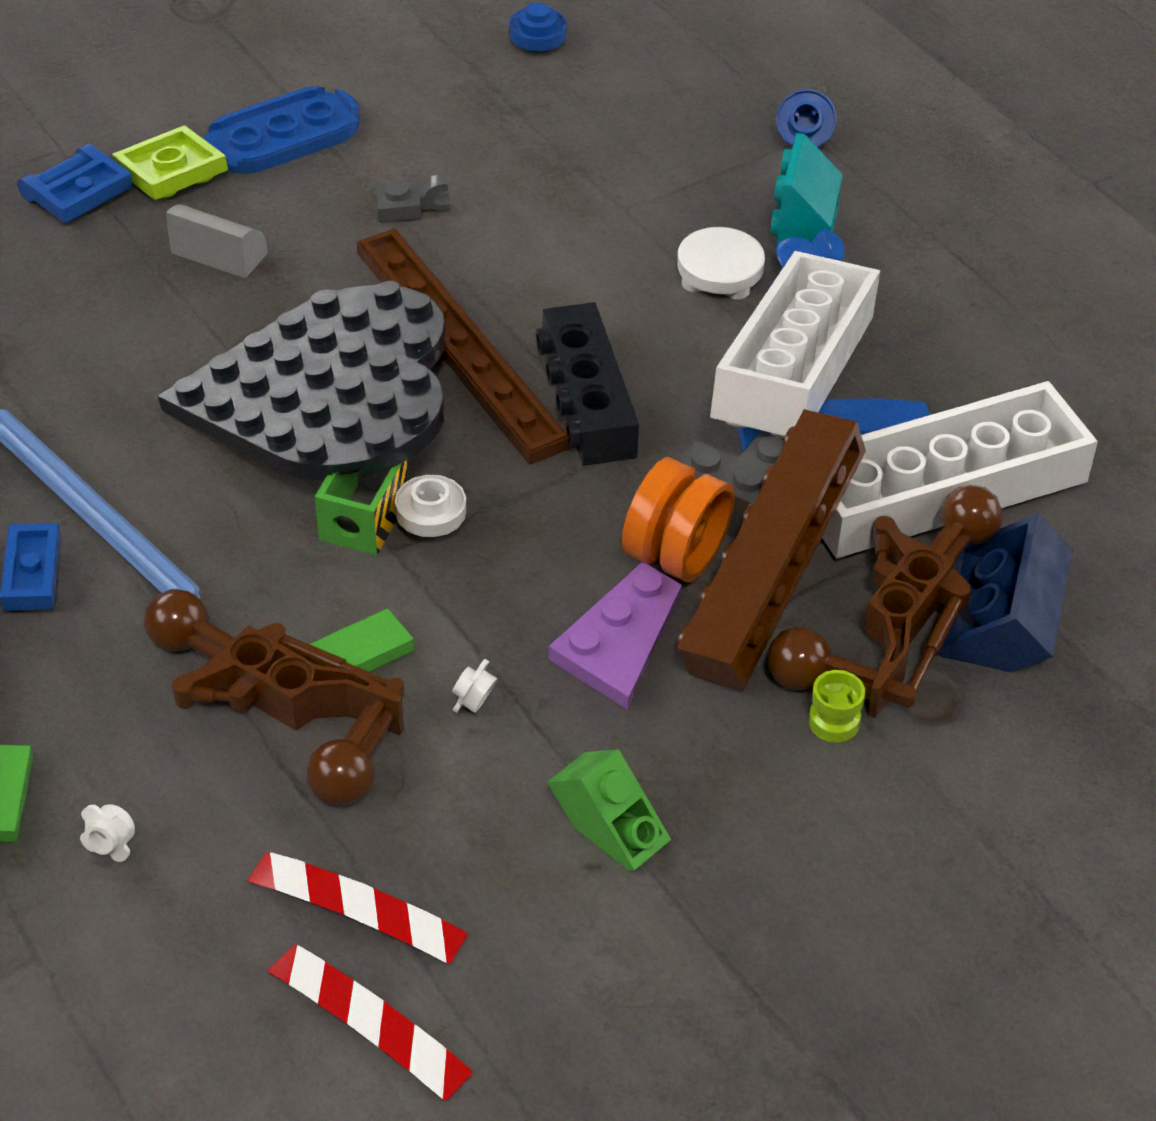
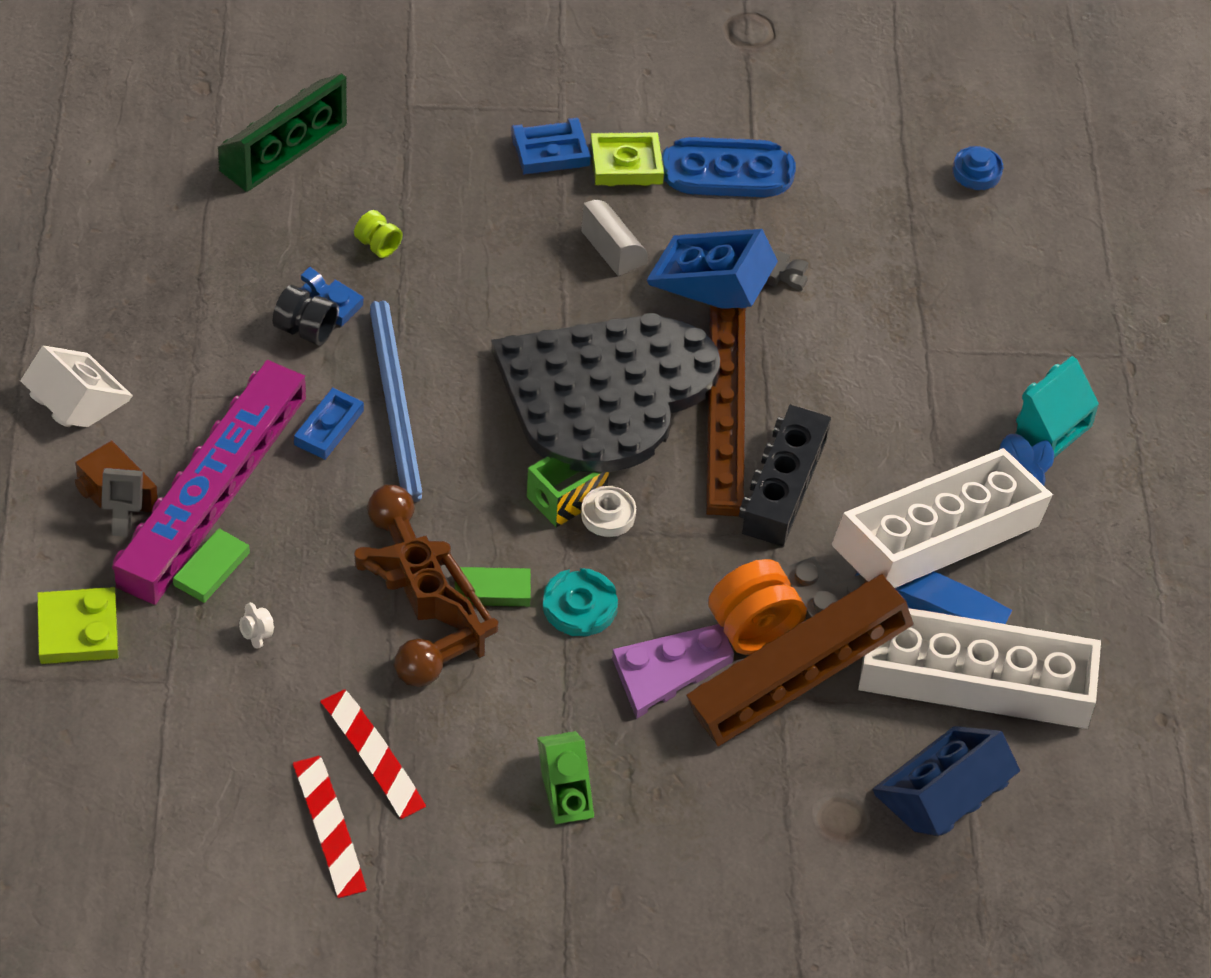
camera: 30 degrees right, 5 degrees up
(355, 216) = (716, 267): none -> blue slope
(469, 618) = (580, 602): none -> teal tile
(473, 687) = (542, 651): white plate -> none
(720, 262) = (960, 427): white tile -> none
(806, 113) = (1117, 343): blue plate -> none
(836, 706) = (766, 789): lime wheel -> none
(907, 596) = (770, 745): reddish brown piece -> none

